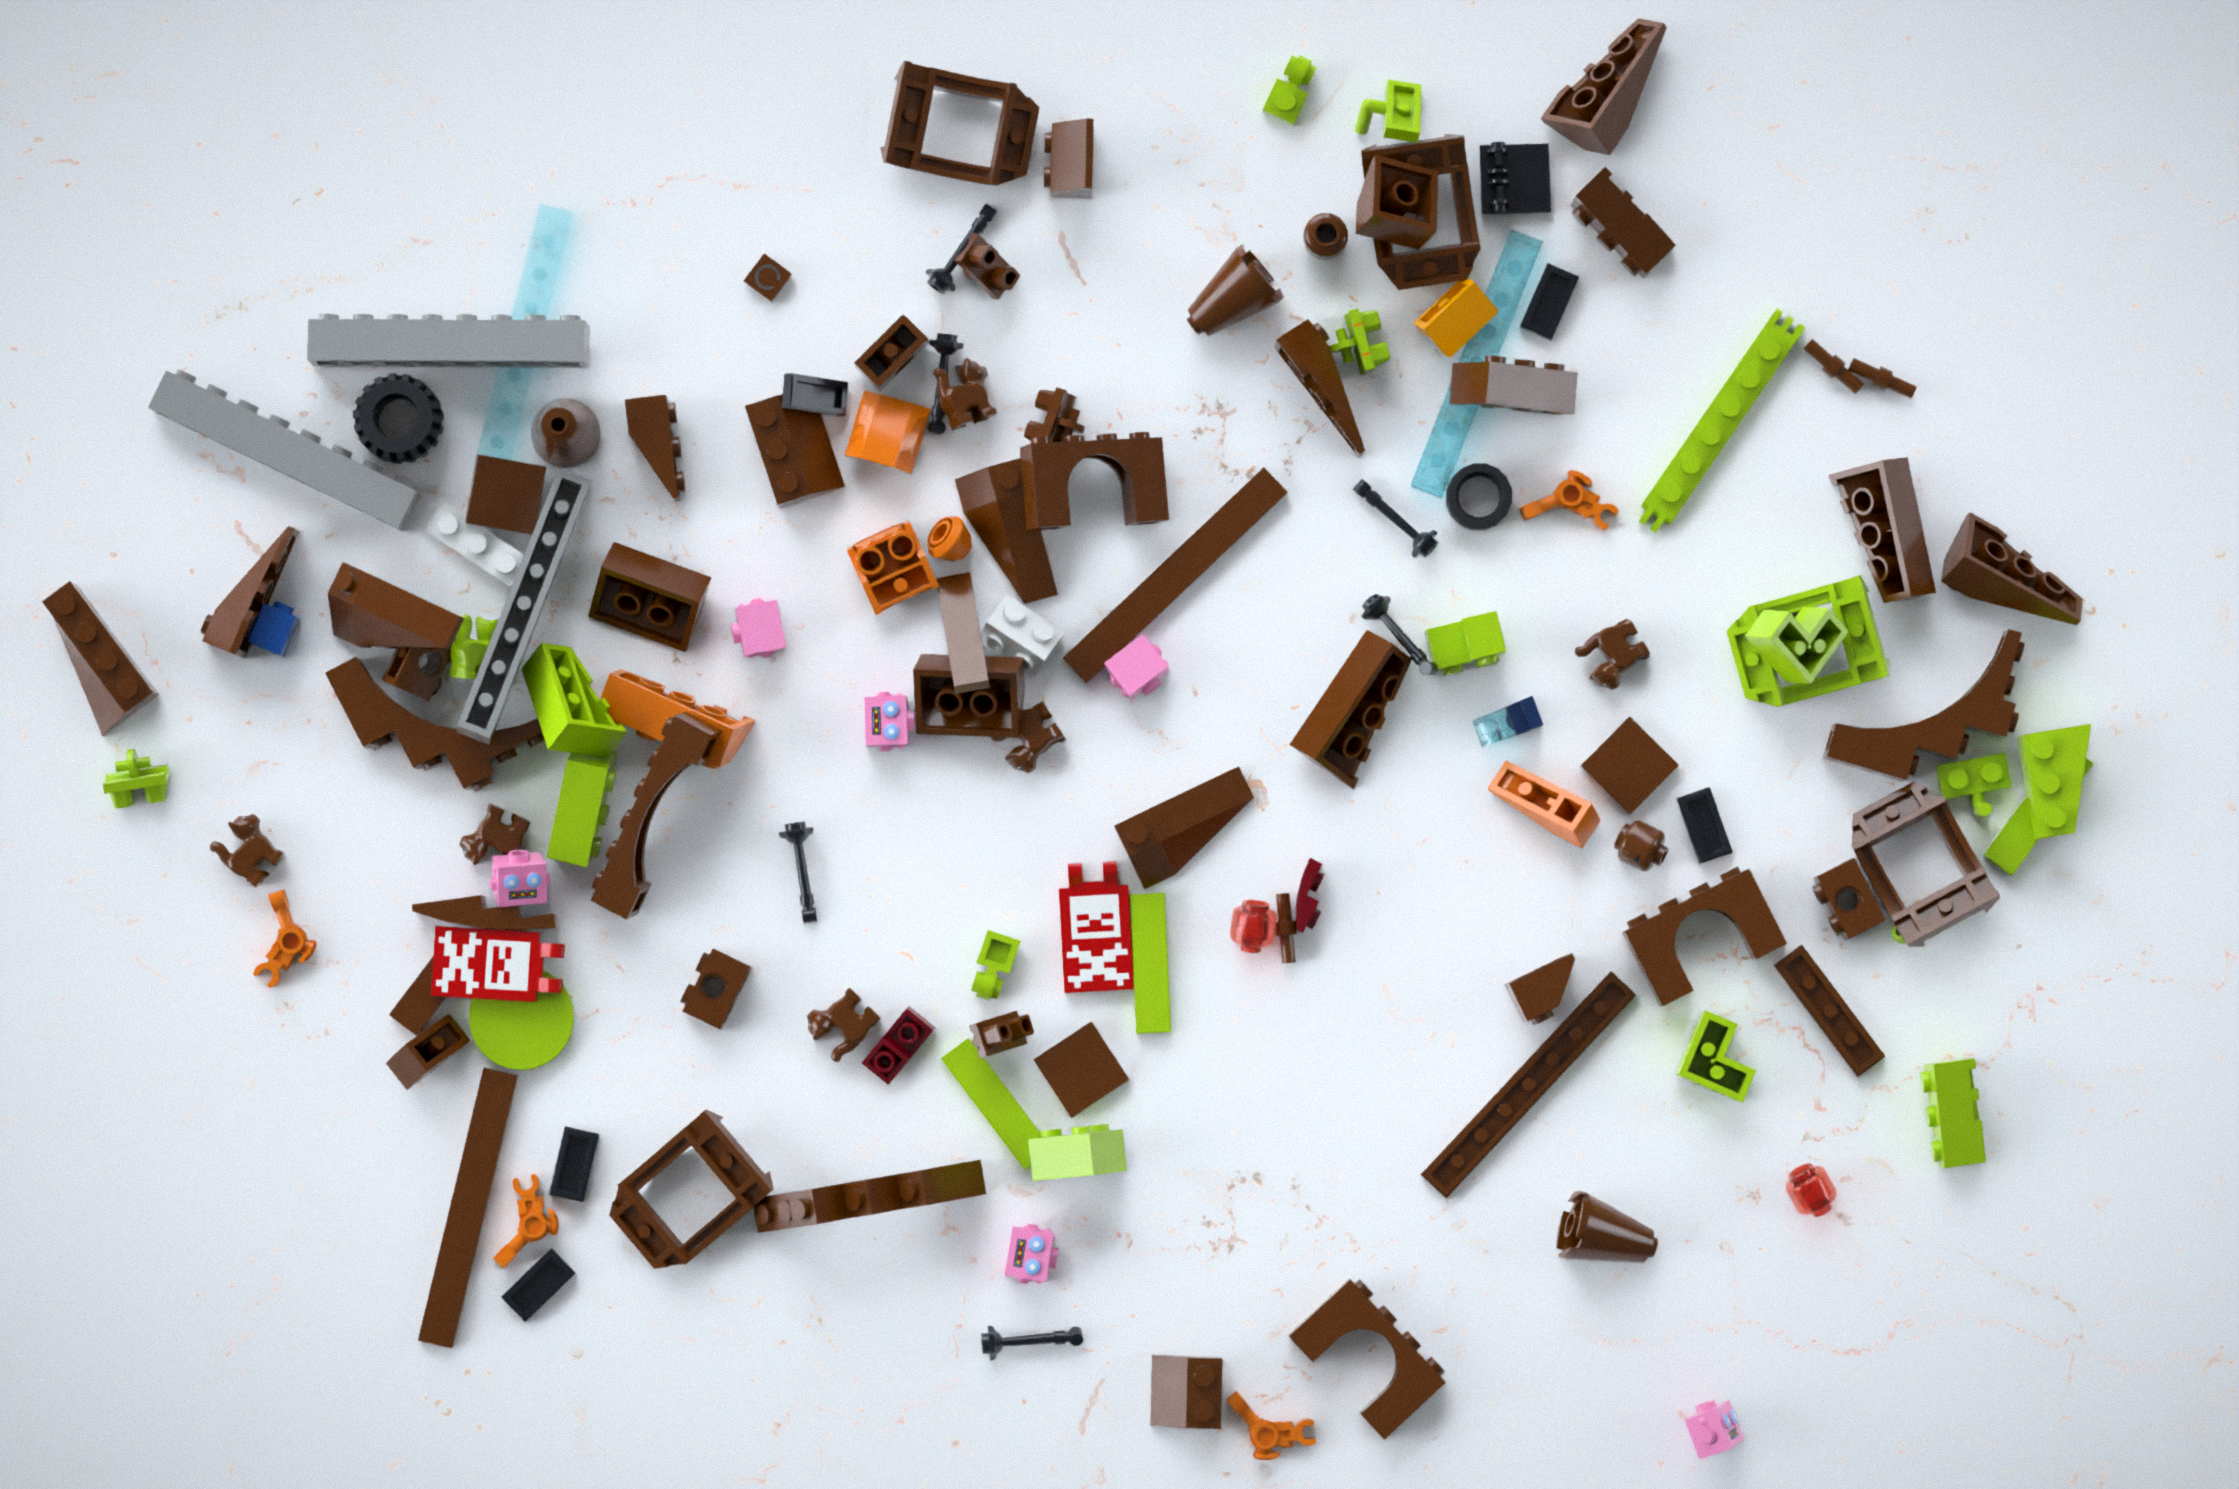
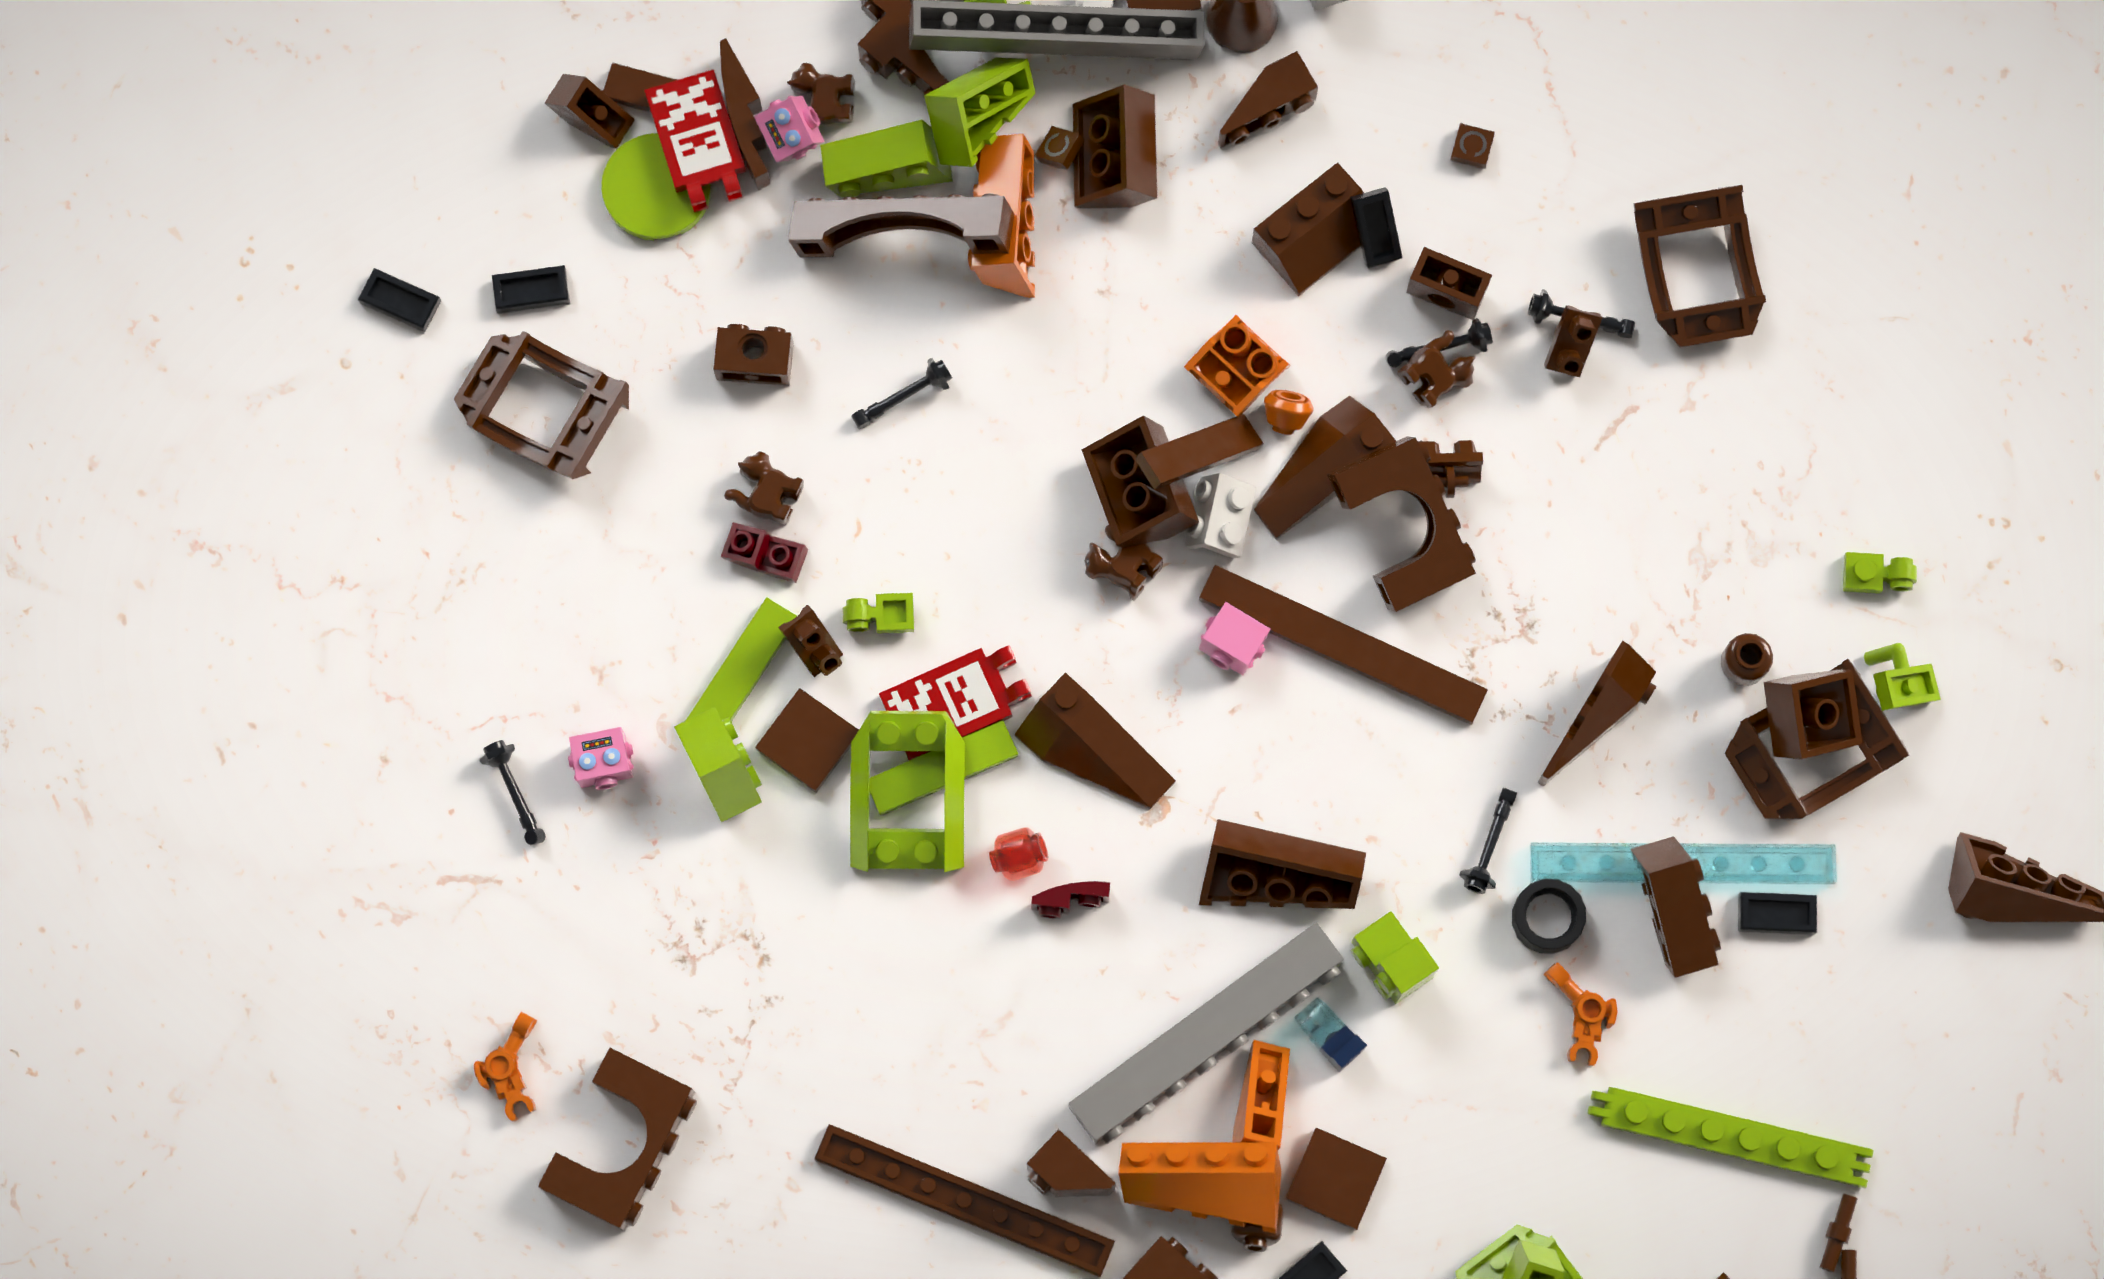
camera: 75 degrees right, 10 degrees down
(468, 1208) = (451, 206): reddish brown tile -> none
(532, 1223) = (459, 270): orange piece -> none
(627, 644) = (1059, 148): none -> reddish brown tile
(758, 628) = (1125, 262): bright pink head -> none
(870, 1196) = (602, 578): reddish brown arch -> none
(888, 431) = (1370, 314): orange slope -> none
(888, 721) = (1082, 418): bright pink head -> none
(1070, 159) = (1715, 384): slope -> none
(1186, 1391) = (518, 970): slope -> none
(1209, 1017) = (907, 846): none -> lime wedge
(1233, 294) = (1650, 591): reddish brown cone -> none
(1285, 928) = (1029, 888): reddish brown bar -> none
(1358, 326) = (1672, 729): lime hips -> none
(1376, 608) = (1392, 856): black piece -> none
(1456, 316) = (1722, 823): light orange panel -> none
(1467, 825) = (1207, 1033): none -> light grey brick
(1515, 178) = (1888, 830): black hinge -> none
(1594, 876) = (1205, 1178): none -> orange wedge
(1616, 650) = (1447, 1121): reddish brown animal -> none
(1621, 225) = (1890, 952): reddish brown wedge -> none

